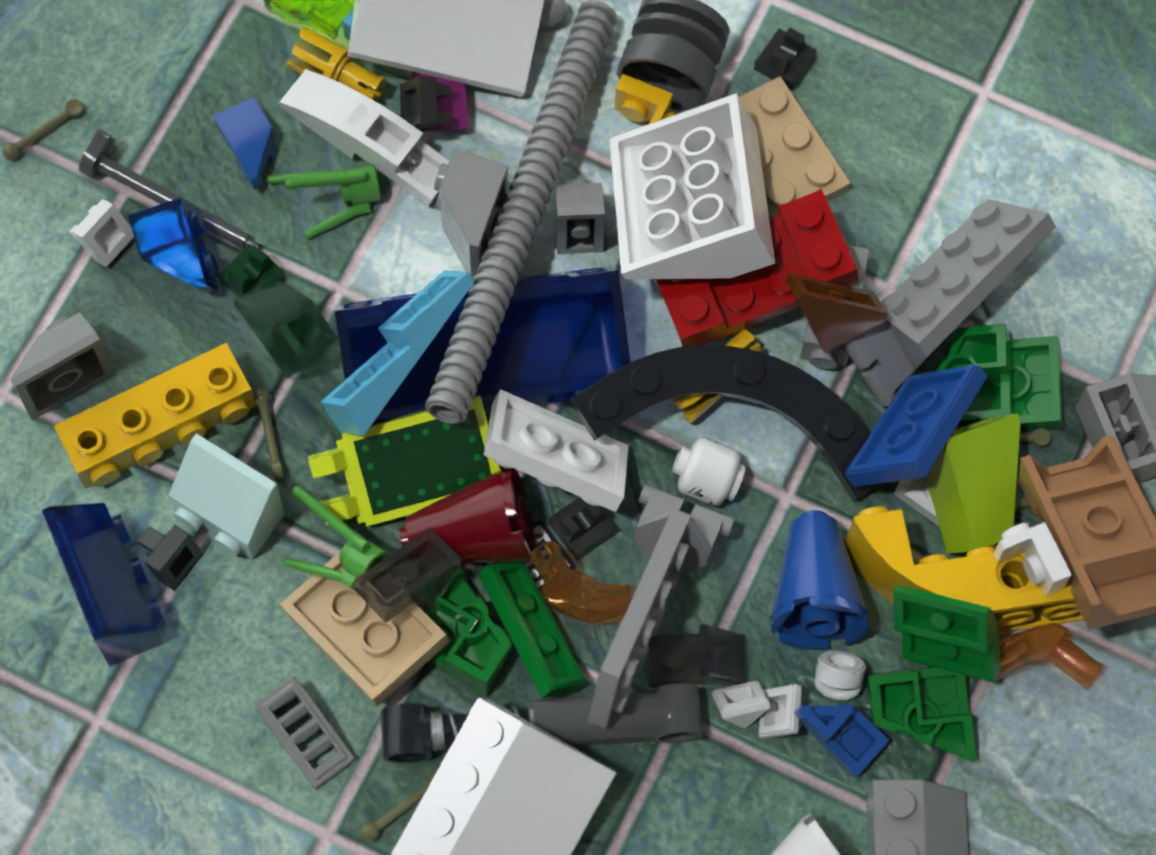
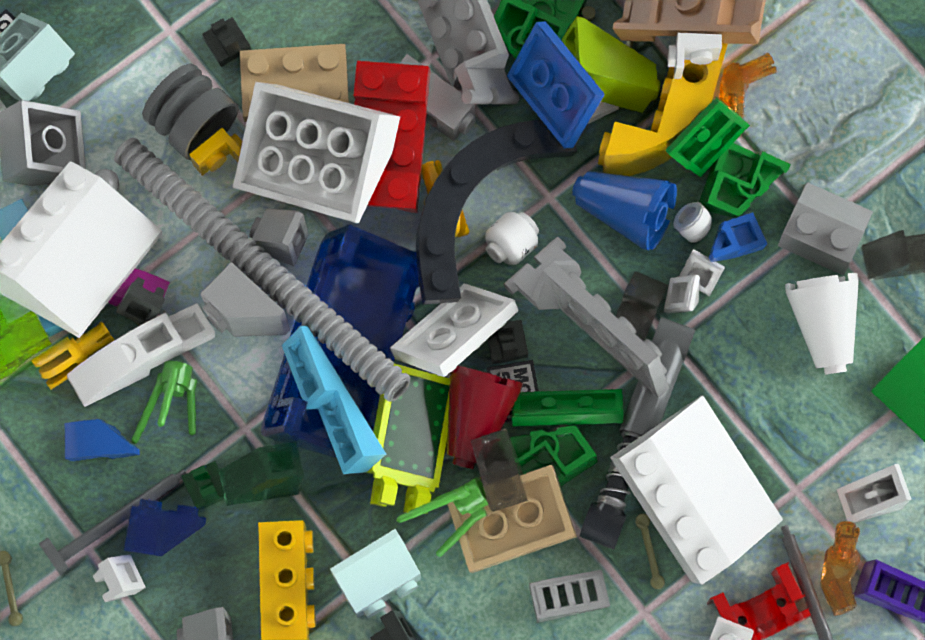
camera: 60 degrees left, 5 degrees up
(262, 398) = (362, 531): olive hinge -> none
(576, 594) = (559, 365): clear orange arm -> none
(835, 310) = (450, 94): reddish brown slope -> none

